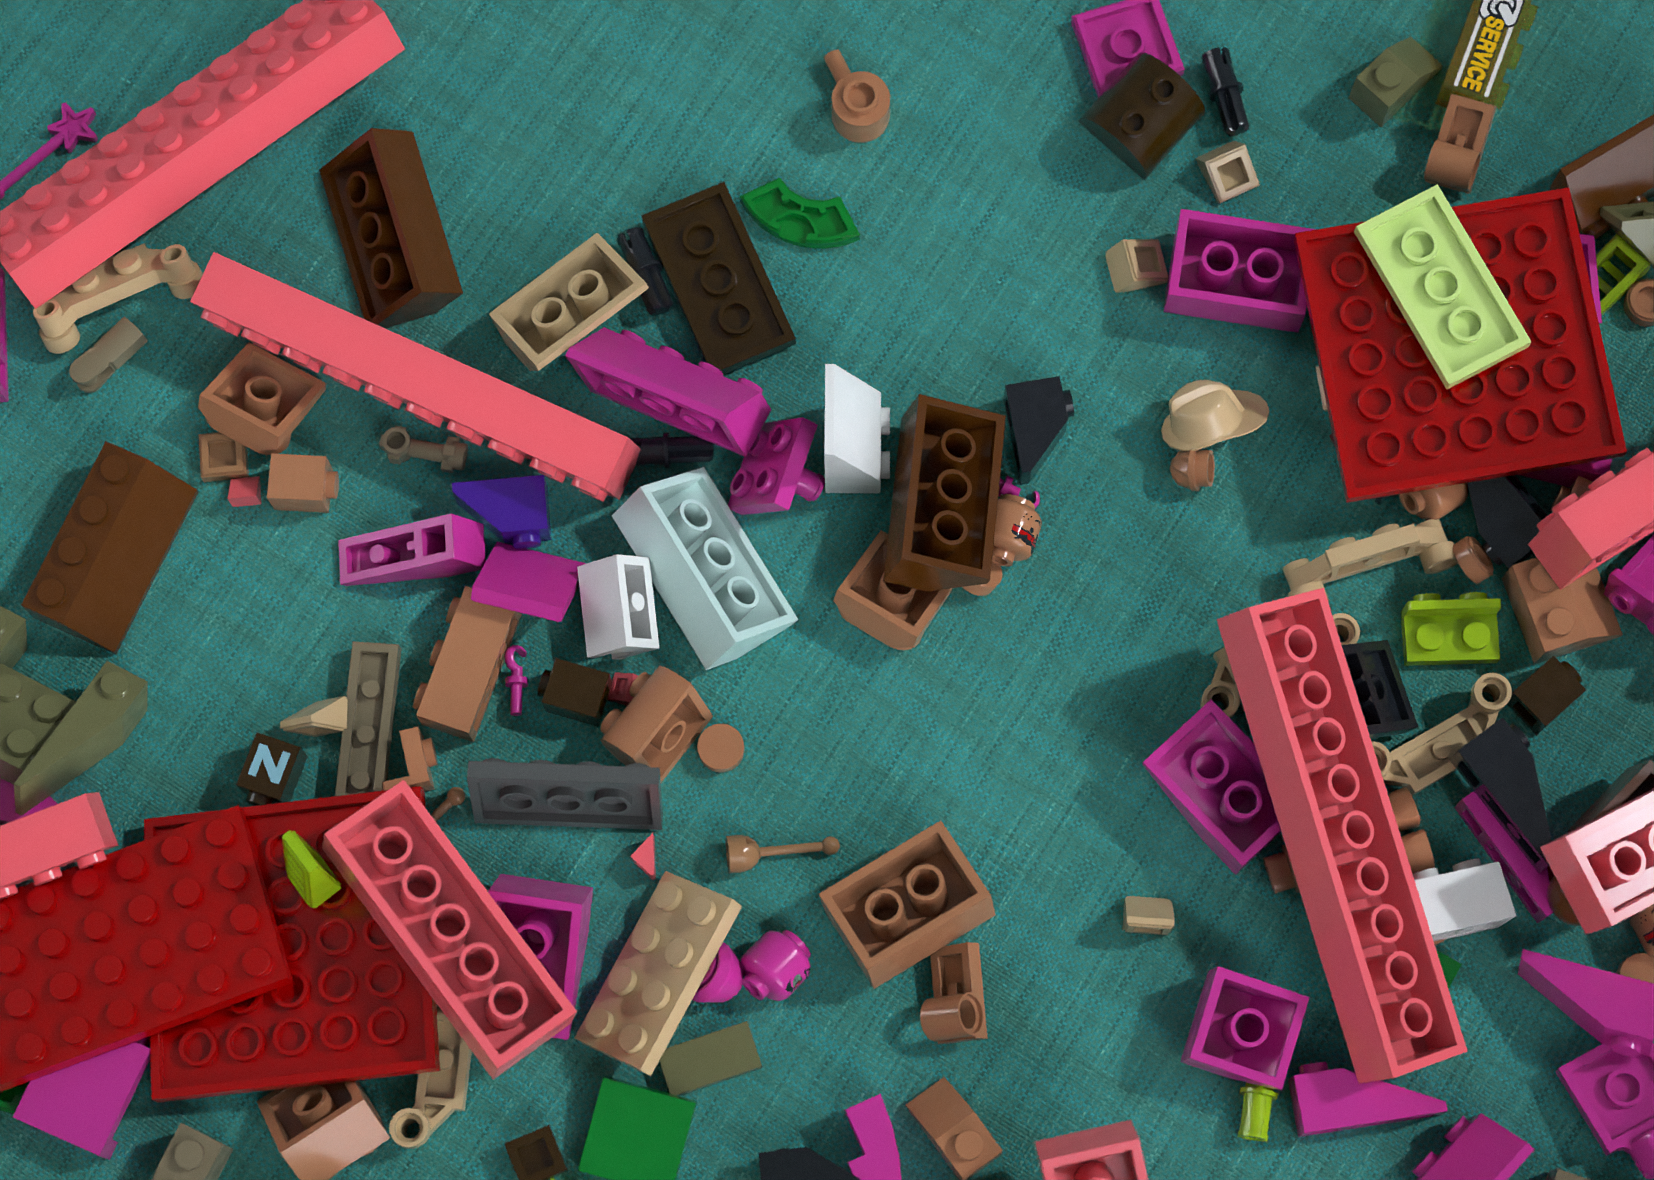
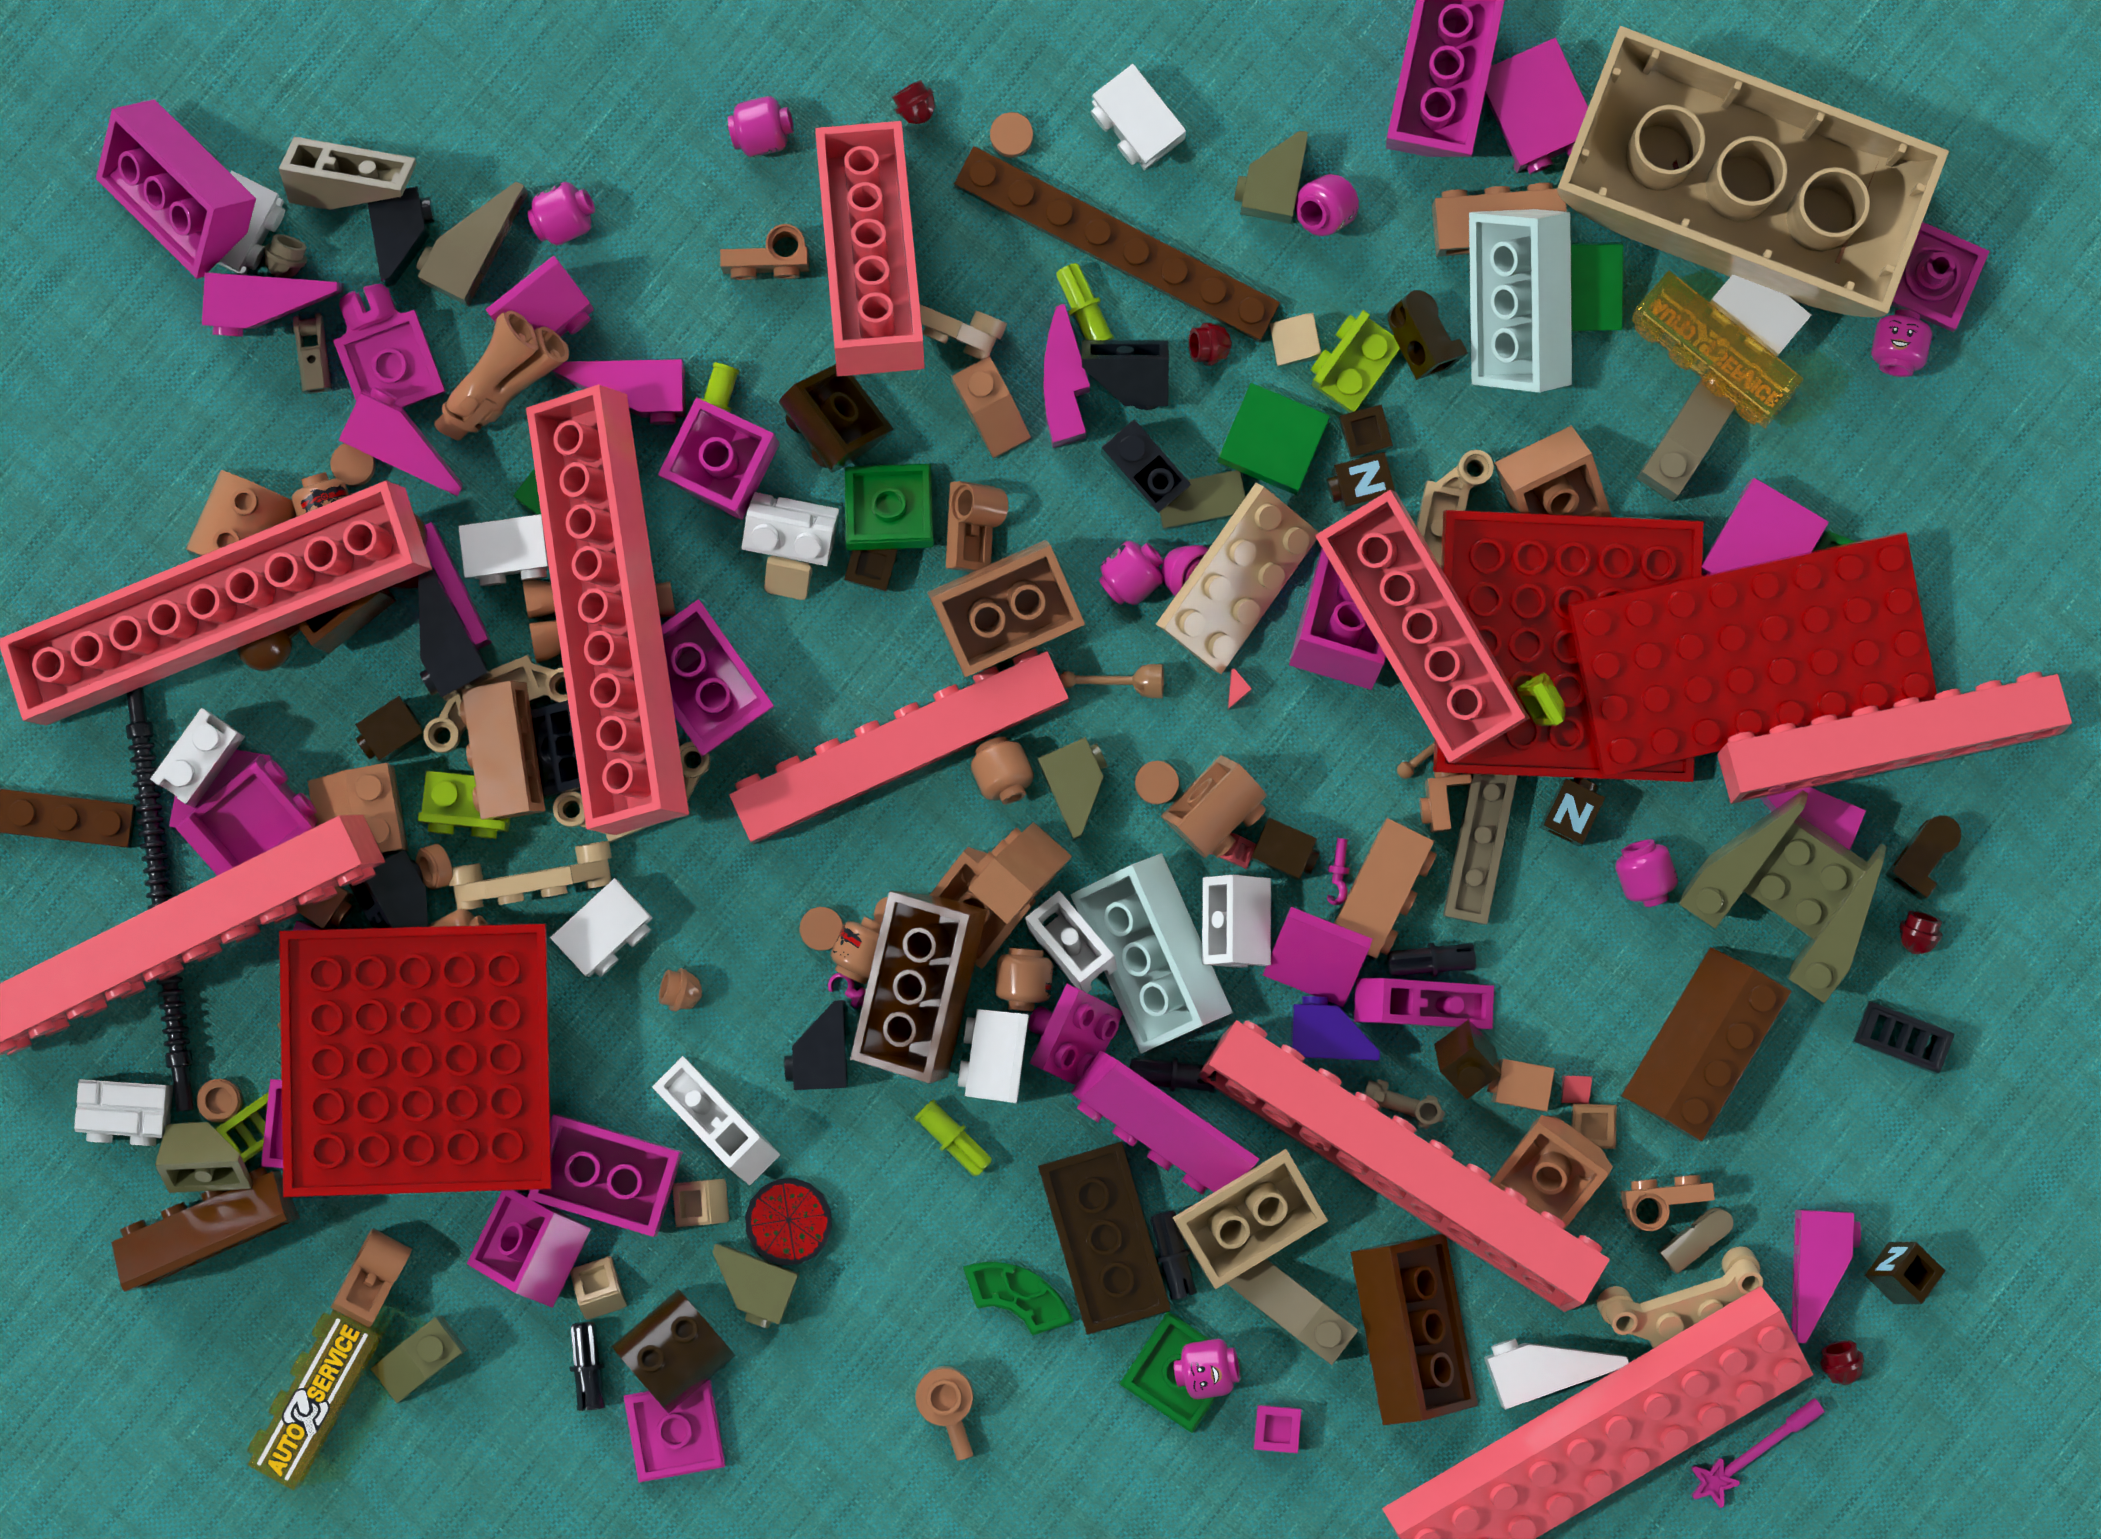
camera: 175 degrees left, 10 degrees up
(124, 396) = (1686, 1190): none -> nougat plate
(187, 717) = (1646, 872): none -> dark pink head
(253, 207) = (1536, 1370): none -> white slope
(318, 718) = (1524, 856): tan slope -> none
(359, 496) = (1467, 1059): none -> dark brown brick
(407, 599) = (1432, 959): none -> black axle
(506, 228) = (1295, 1309): none -> dark tan slope
(520, 119) = (1277, 1428): none -> dark pink plate
(534, 1098) = (1360, 481): none -> dark brown brick
(565, 794) = (1316, 750): dark grey plate -> none
(596, 158) = (1207, 1369): none -> dark pink head
(625, 163) = (1153, 1375): none -> green tile
(774, 1081) = (1144, 467): none -> black slope
(790, 561) = (1071, 942): none -> white brick
(809, 735) = (1074, 781): none -> olive slope
(835, 523) = (1023, 978): none -> nougat head
(855, 619) = (1017, 870): none -> nougat brick
(887, 358) = (953, 1138): none -> lime axle
(887, 735) = (1002, 770): none -> nougat head
(1002, 746) = (899, 746): none -> coral brick
(1044, 257) = (788, 1221): none -> tile
(1050, 1003) = (888, 507): none -> green tile
(1055, 552) = (820, 928): none -> nougat tile
(1060, 938) = (871, 568): none -> dark brown plate
(1069, 190) = (756, 1285): none -> olive slope
(1123, 1086) = (834, 417): none -> dark brown brick
(1132, 338) = (716, 1121): none -> white slope
(1154, 963) = (790, 529): none -> white brick
(1211, 413) = (653, 1036): tan piece -> none
(1284, 519) = (603, 929): none -> white brick
(1305, 185) = (528, 1247): none -> dark pink slope
(1424, 679) = (502, 750): none -> nougat brick
(1442, 286) = (423, 1110): yellowish green plate -> none
(1495, 1096) = (509, 365): none -> nougat piece

